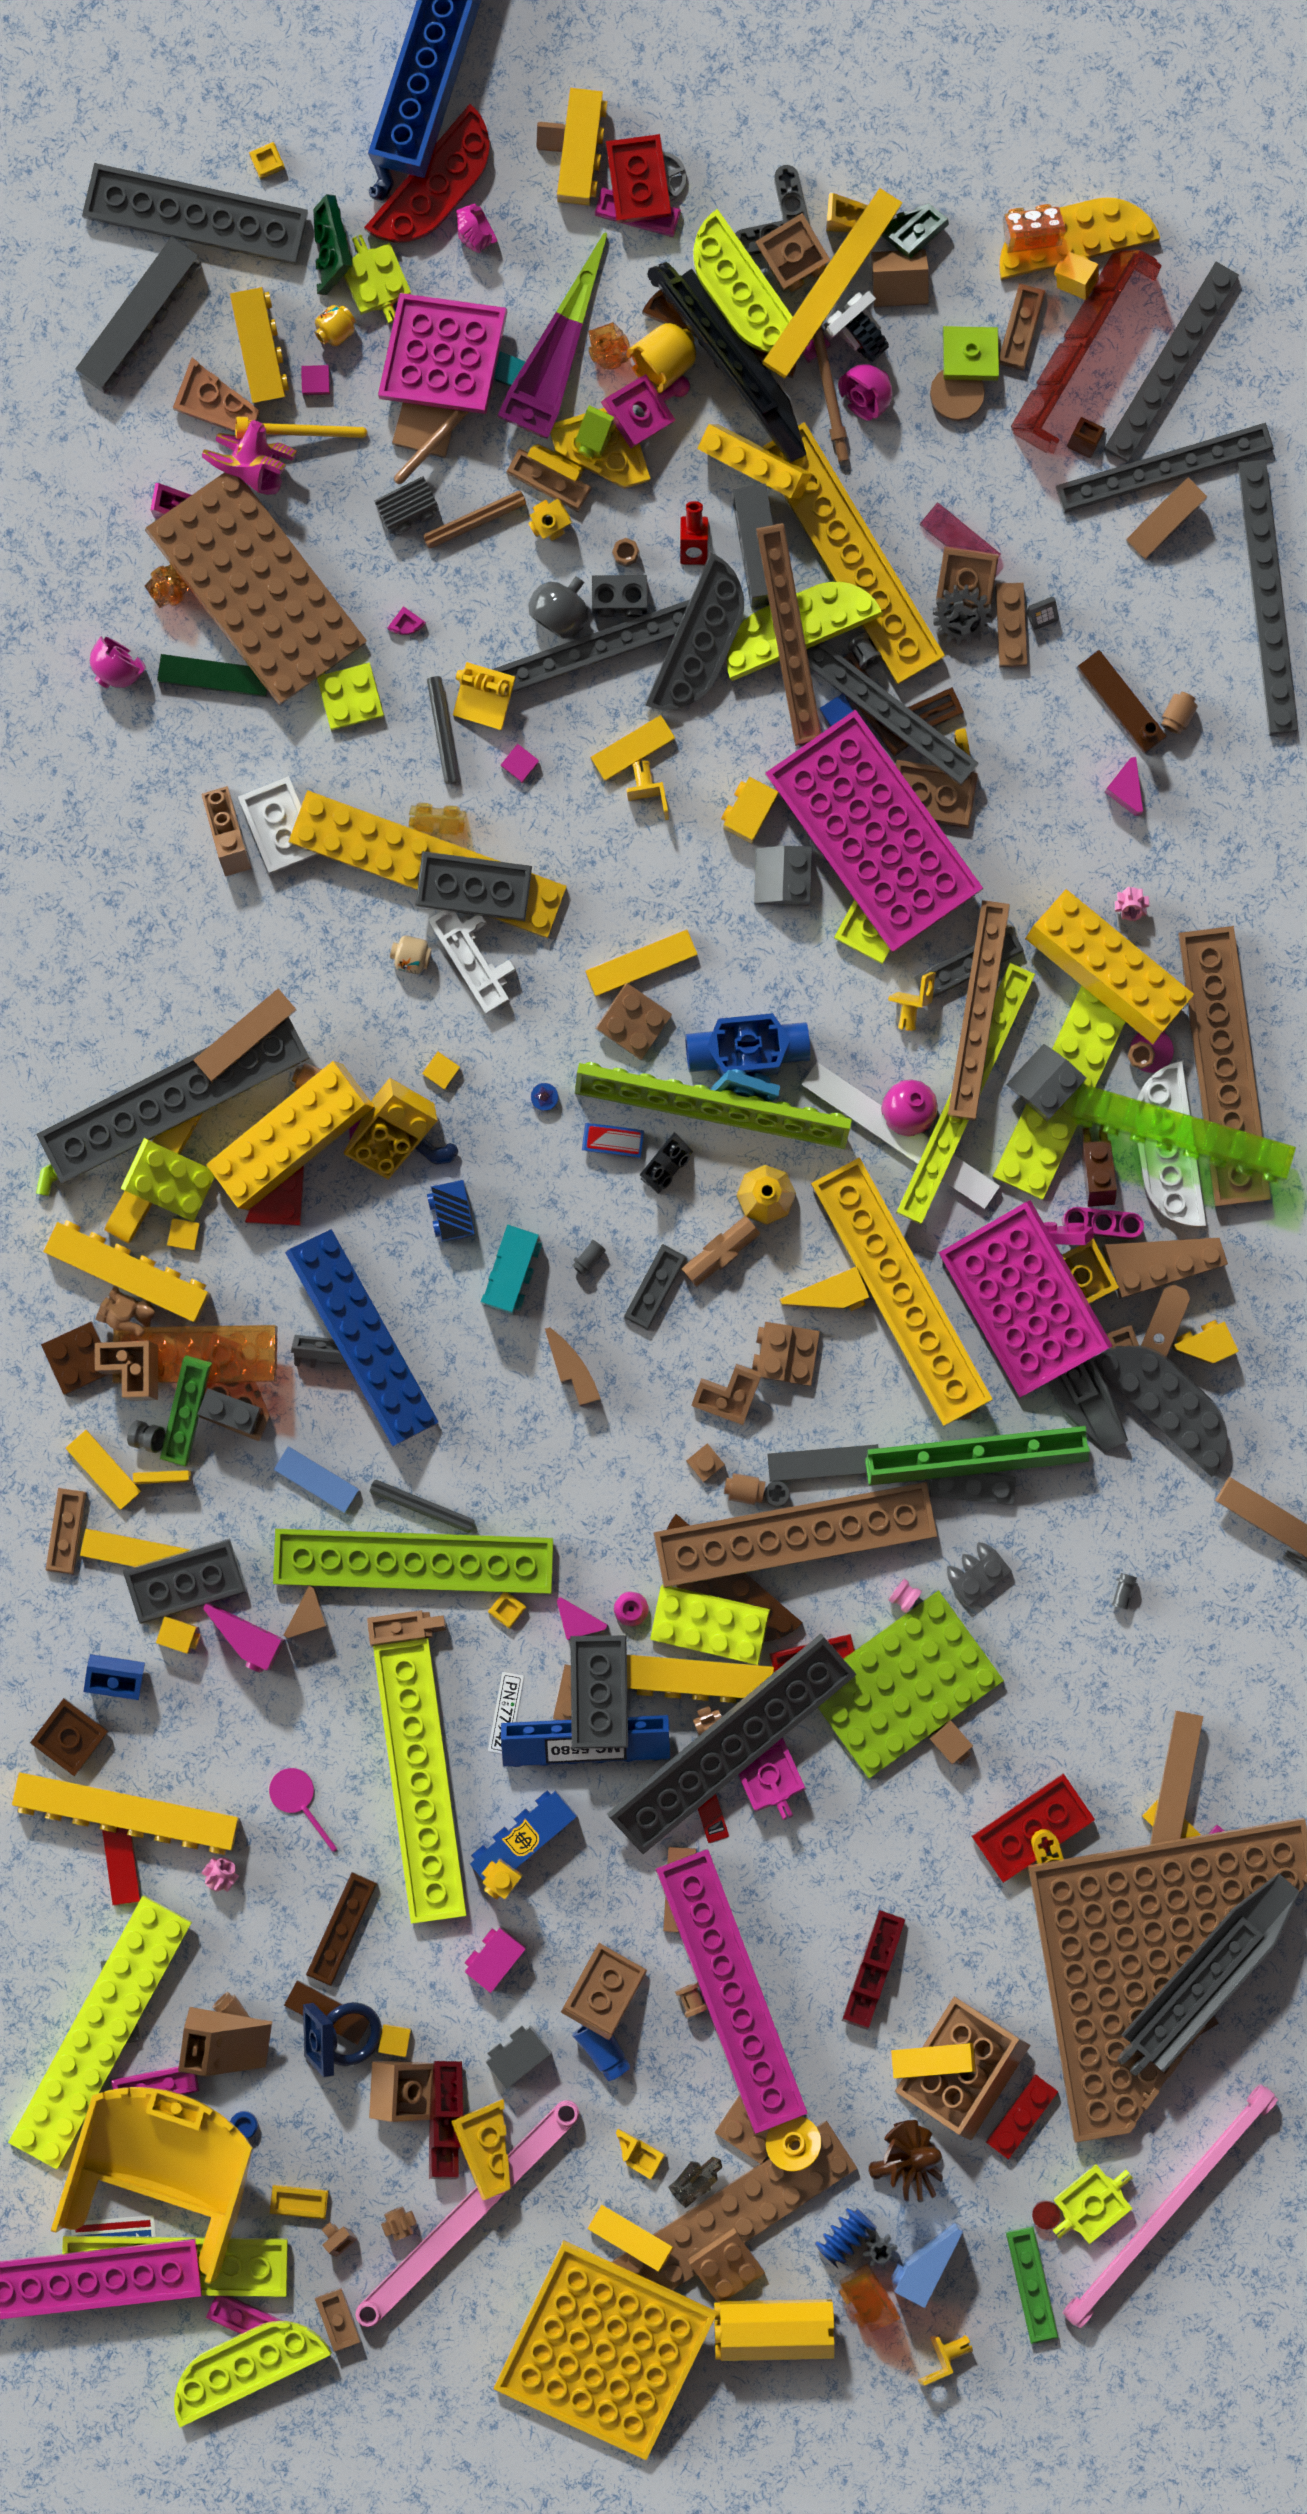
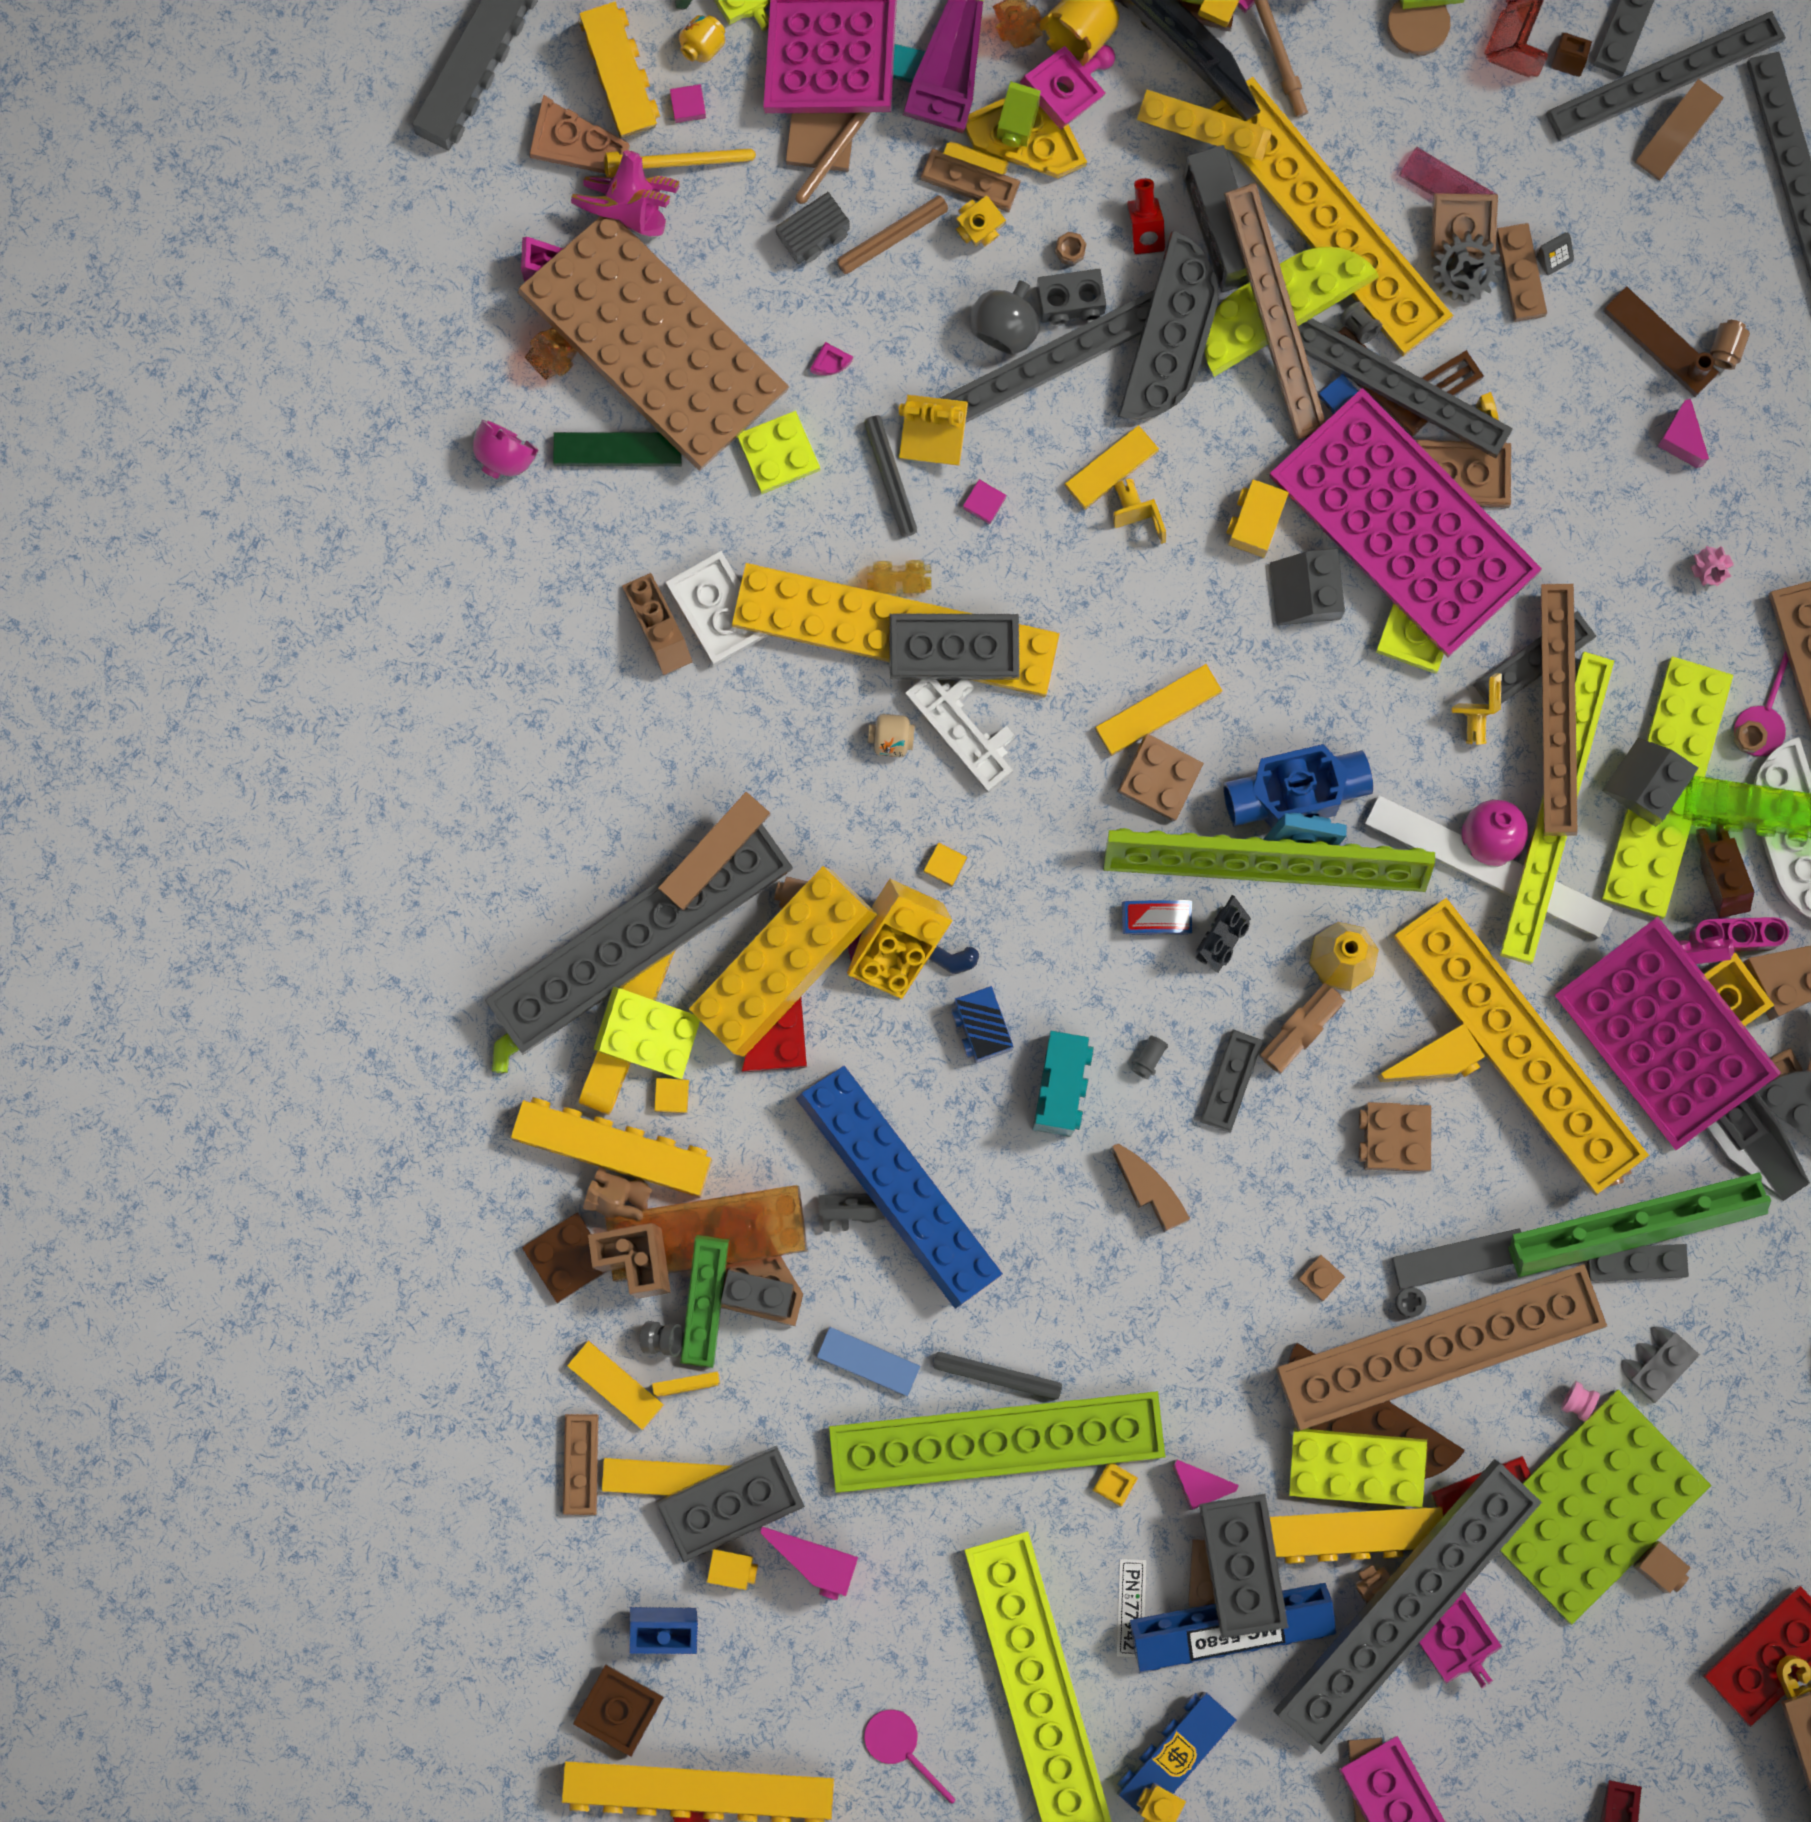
camera: 15 degrees left, 5 degrees down
(308, 1615) = (882, 1524): medium nougat slope -> none
(403, 1627) = (997, 1522): medium nougat hinge -> none
(544, 1097) = (1069, 878): blue tile -> none
(622, 1605) = (1251, 1467): dark pink plate -> none
(713, 1820) = (1396, 1701): red sticker -> none
(730, 1401) = (1341, 1202): medium nougat plate -> none
(744, 1489) = (1373, 1302): medium nougat brick -> none
(867, 390) = (1317, 32): dark pink cylinder -> none
(1109, 966) = (1700, 639): yellow brick -> none

